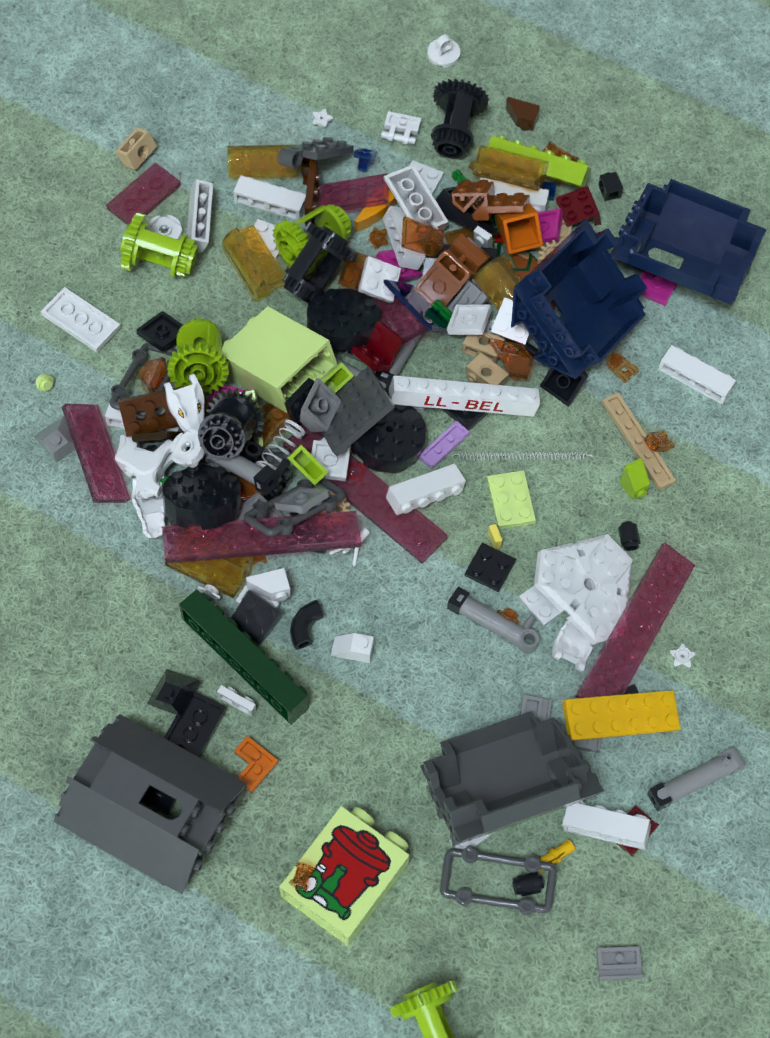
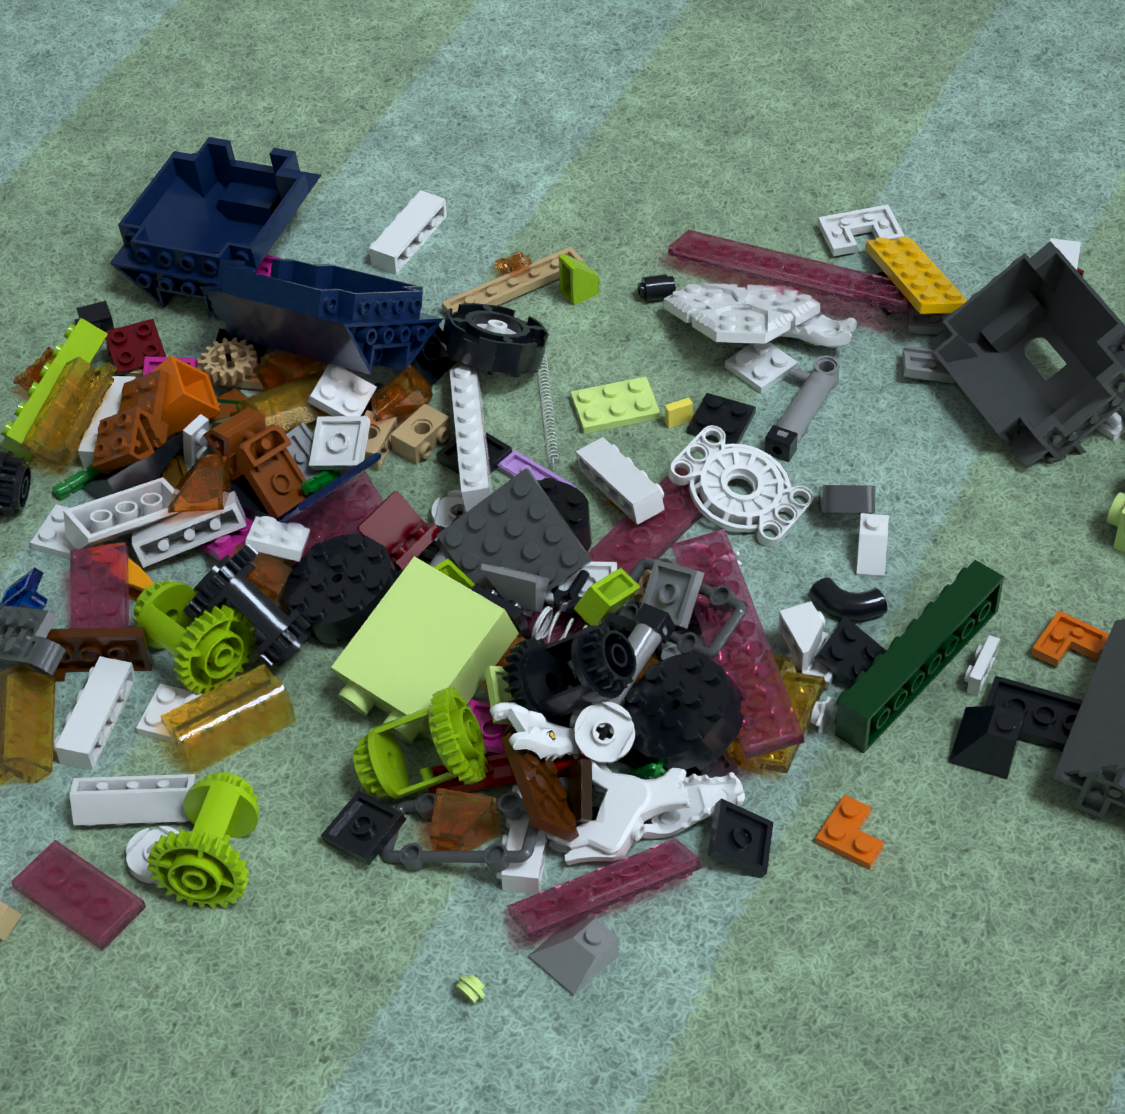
camera: 90 degrees left, 15 degrees down
(80, 319) = (339, 954): white plate -> none
(118, 531) = (740, 838): none -> black plate
(118, 595) = (843, 833): none -> orange plate
(317, 446) = (571, 594): none -> black bar
(374, 235) = (182, 565): clear orange plate -> none
(388, 634) = (847, 499): none -> dark grey piece
(422, 548) = (725, 462): none -> white piece
(509, 614) = (791, 392): clear orange plate -> none
(562, 415) = (494, 339): none -> black piece
(682, 650) = (811, 237): white plate -> none
(697, 676) = (840, 228): none -> white plate
(726, 764) = (1000, 248): light grey piece -> none

